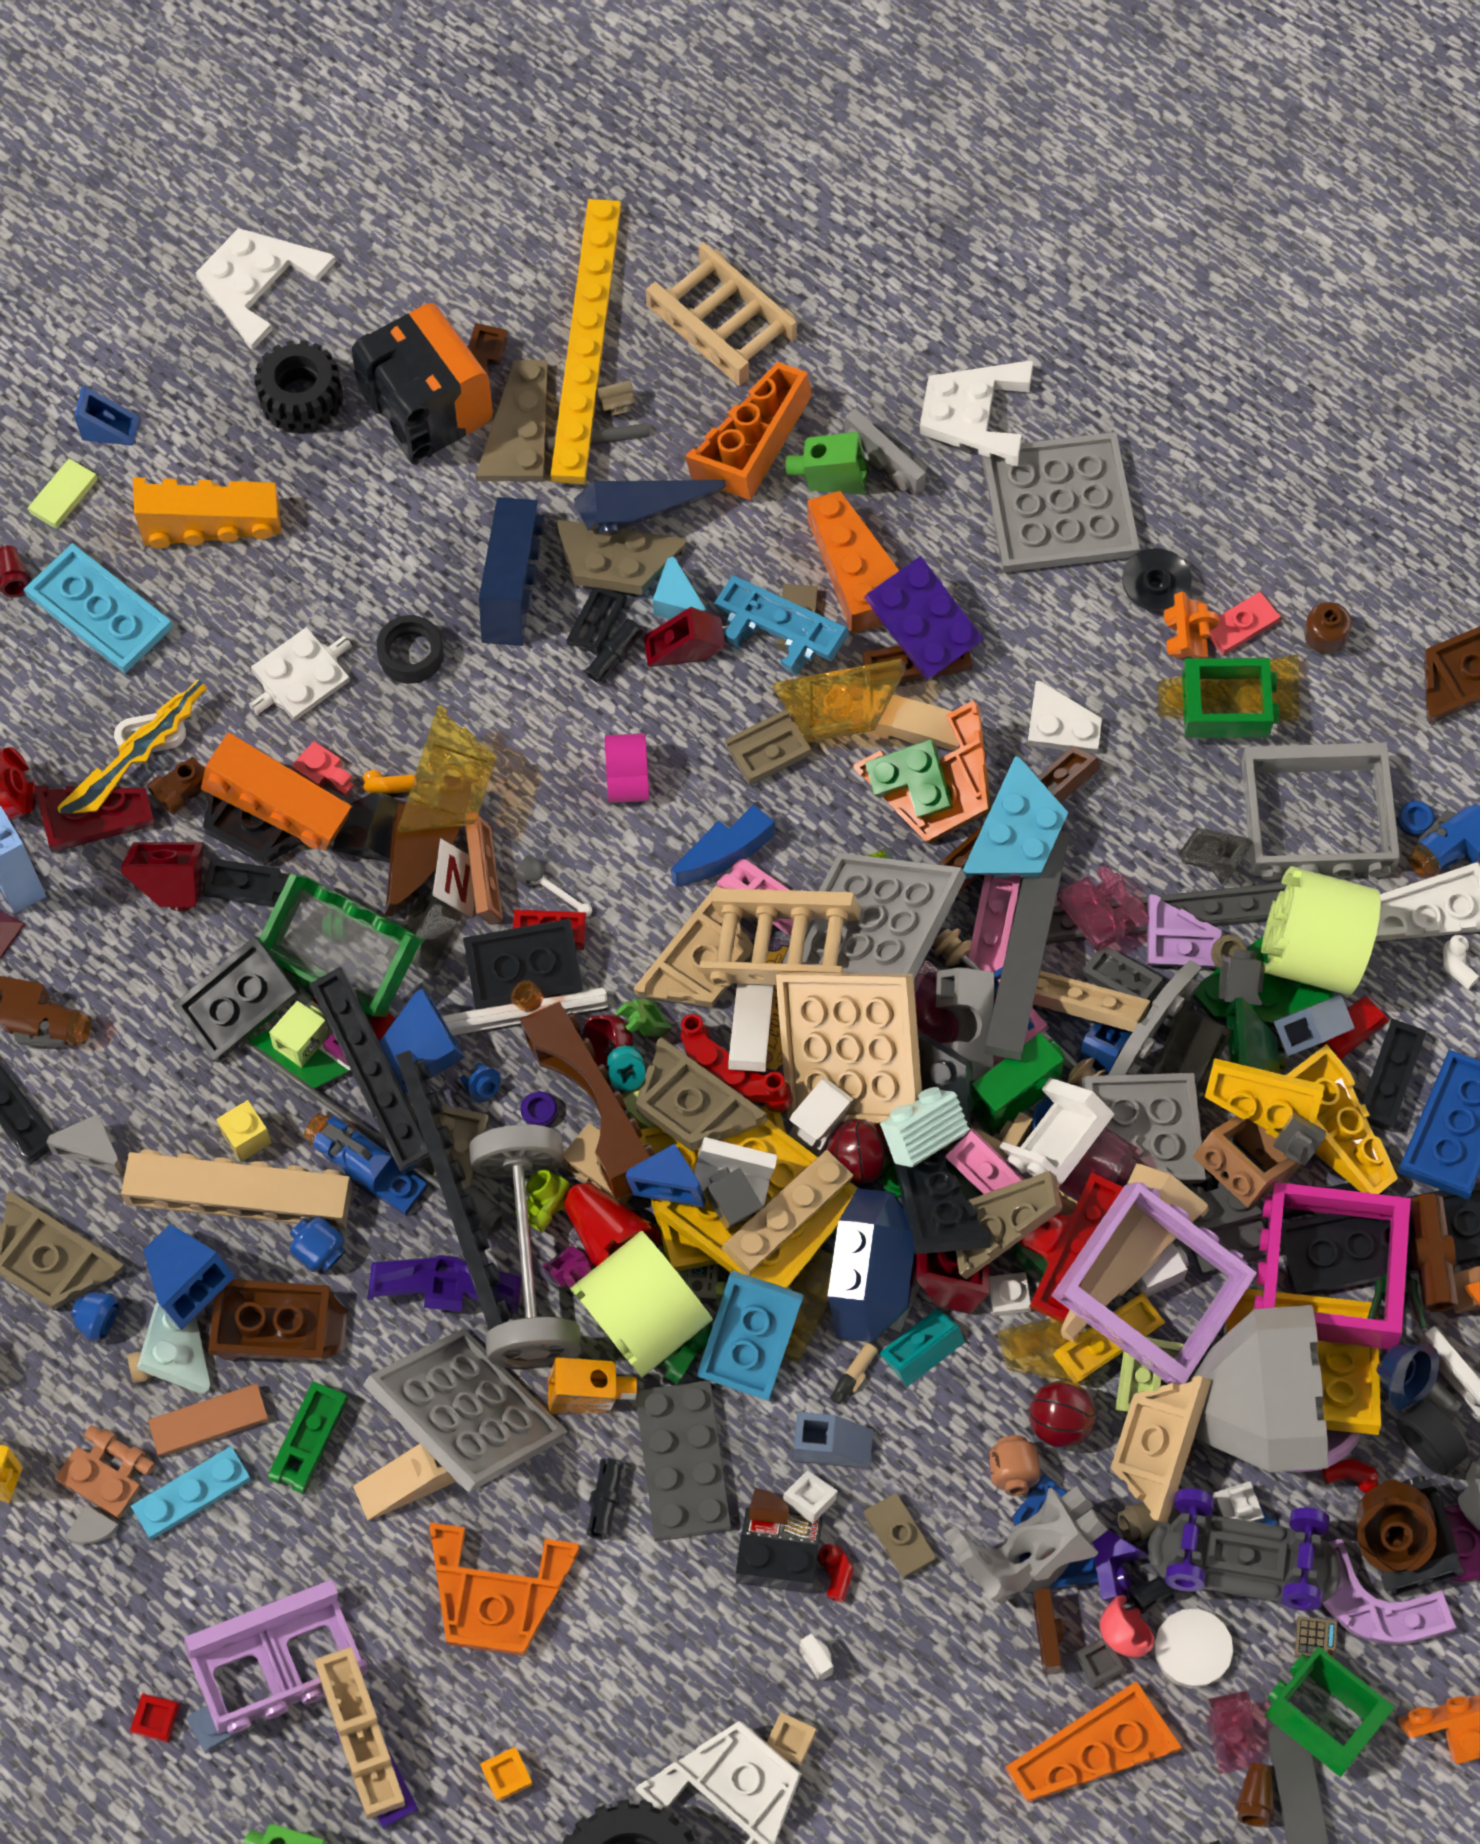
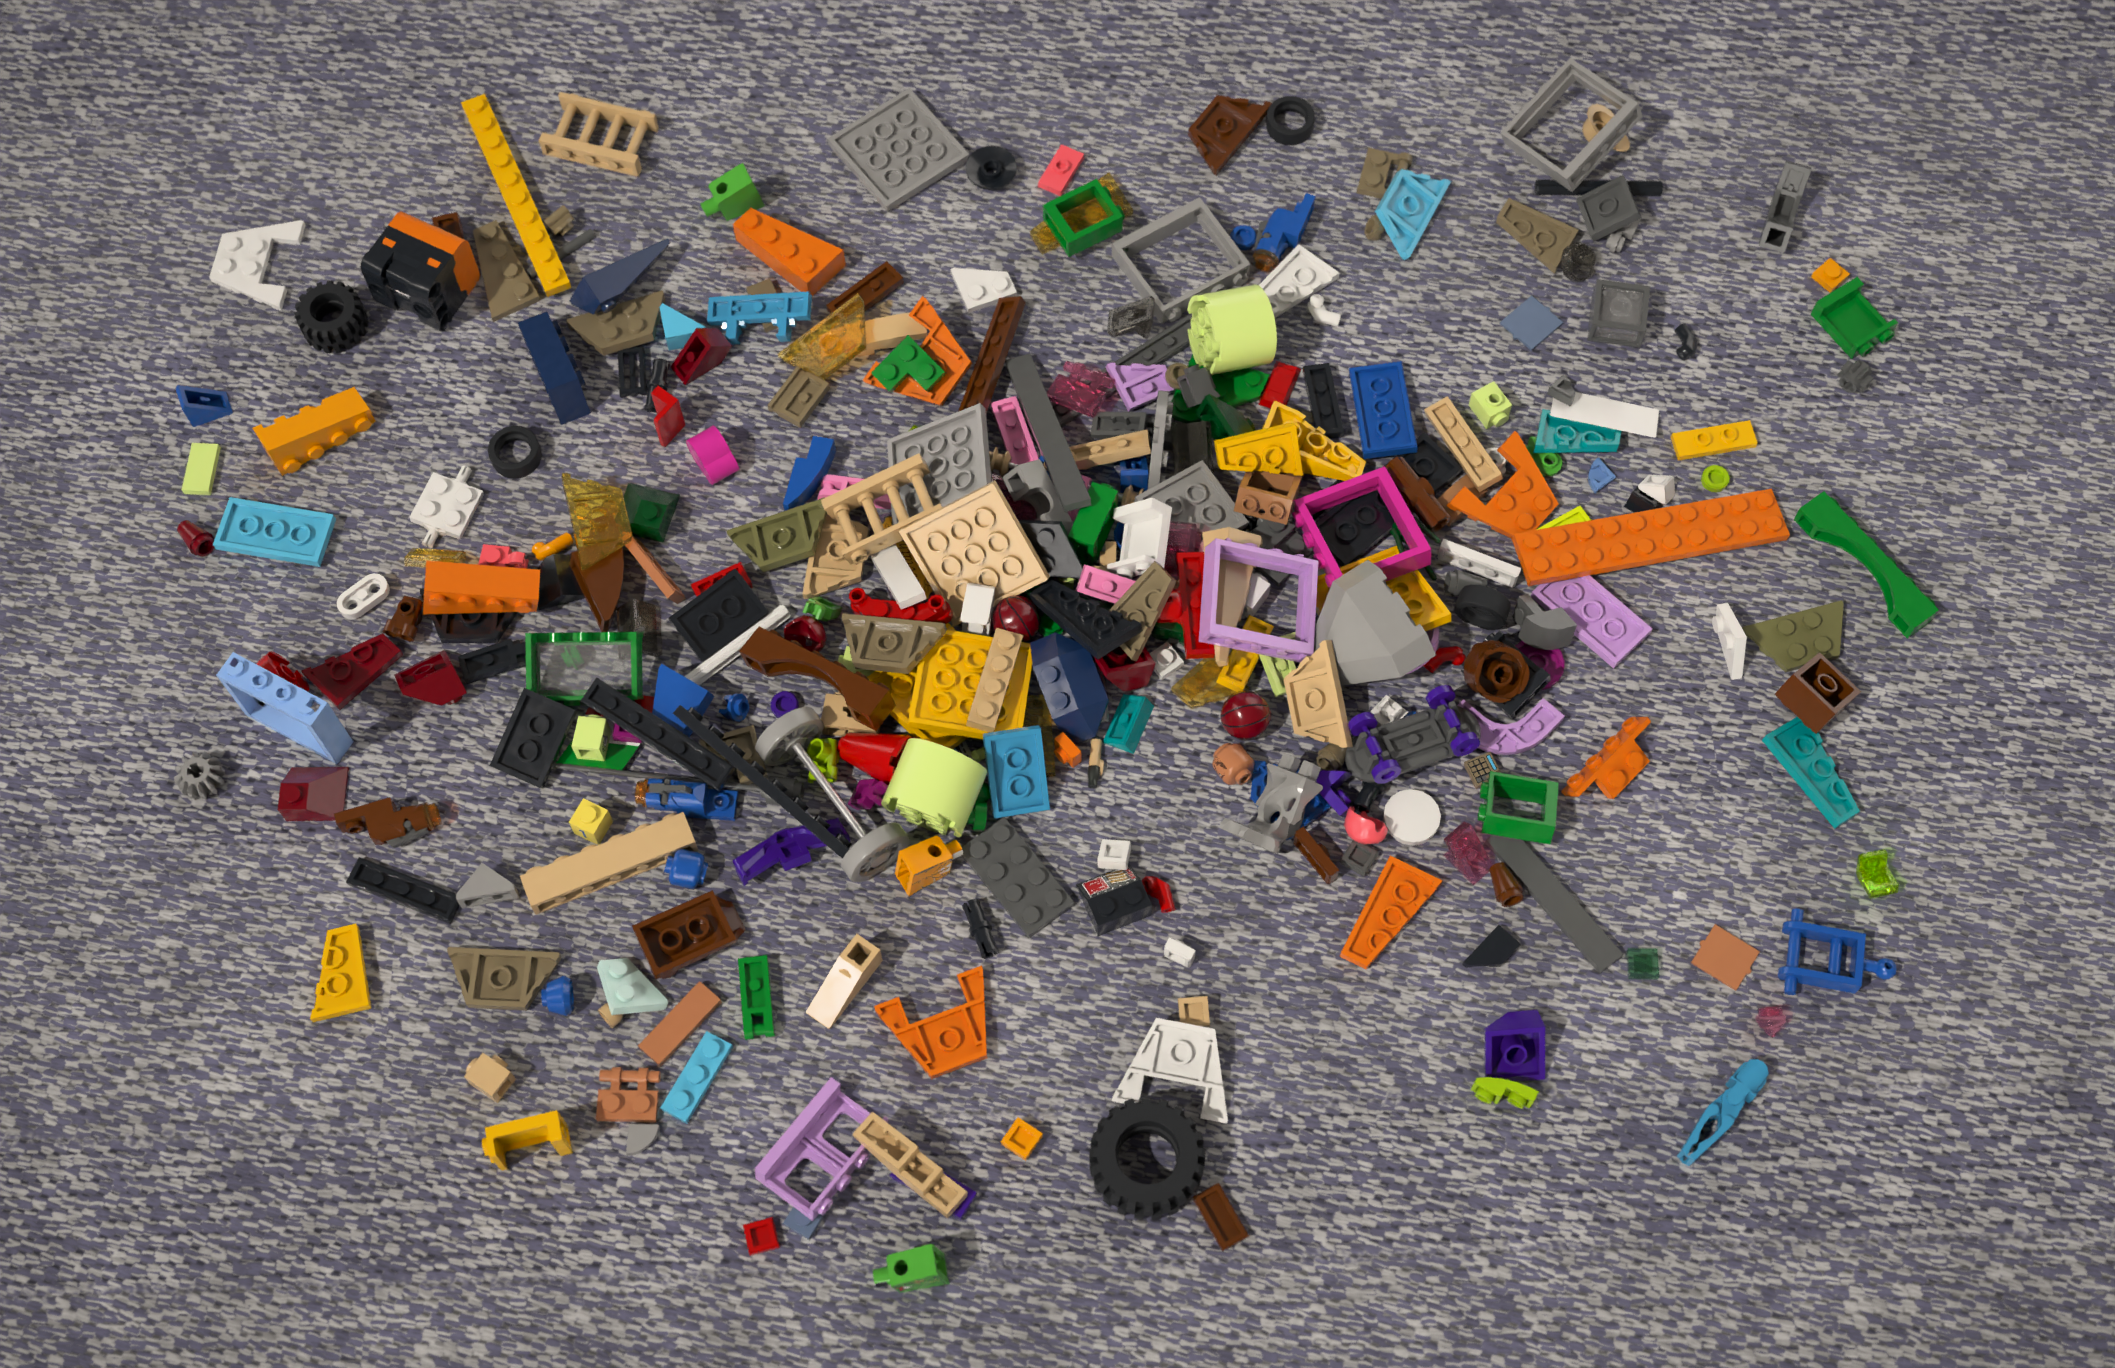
camera: 30 degrees left, 0 degrees up
(136, 749) = (361, 609): yellow sword -> none
(184, 1274) = (609, 932): blue slope -> none
(251, 730) = (417, 556): none -> clear yellow plate
(454, 879) = (638, 583): white sticker -> none
(465, 1409) = (856, 918): light grey plate -> none
(518, 797) = (649, 511): none -> dark green slope
(527, 996) = (734, 634): clear orange hinge -> none
(531, 872) = (687, 556): hinge -> none
(601, 700) = (669, 415): none -> red panel
(622, 1060) = (825, 641): teal wheel -> none
(649, 907) = (782, 536): none -> olive wing
(666, 1178) = (905, 697): blue slope -> none
(732, 1197) = (955, 687): dark grey brick -> none
(753, 432) = (667, 200): orange wedge -> none
(755, 1164) = (945, 672): white panel -> none
(768, 1507) = (1092, 875): reddish brown tile -> none
(827, 1341) = (1066, 750): none -> orange plate
(831, 1441) = (1106, 811): sand blue slope -> none
(886, 454) = (767, 172): light grey plate -> none
(899, 1536) = (1185, 848): dark tan plate -> none
(923, 618) = (855, 262): dark purple plate -> none
(924, 1126) = (1055, 576): light aqua brick -> none
(960, 408) = (797, 121): white wing -> none
(1018, 828) = (997, 363): medium azure wing -> none
(1192, 625) = (1033, 183): orange hips -> none
(1299, 1139) = (1294, 465): dark grey tile -> none
(1313, 1025) = (1258, 393): sand blue slope -> none
(1327, 627) = (1119, 145): reddish brown head -> none
(1408, 1373) = (1446, 573): dark blue piece -> none

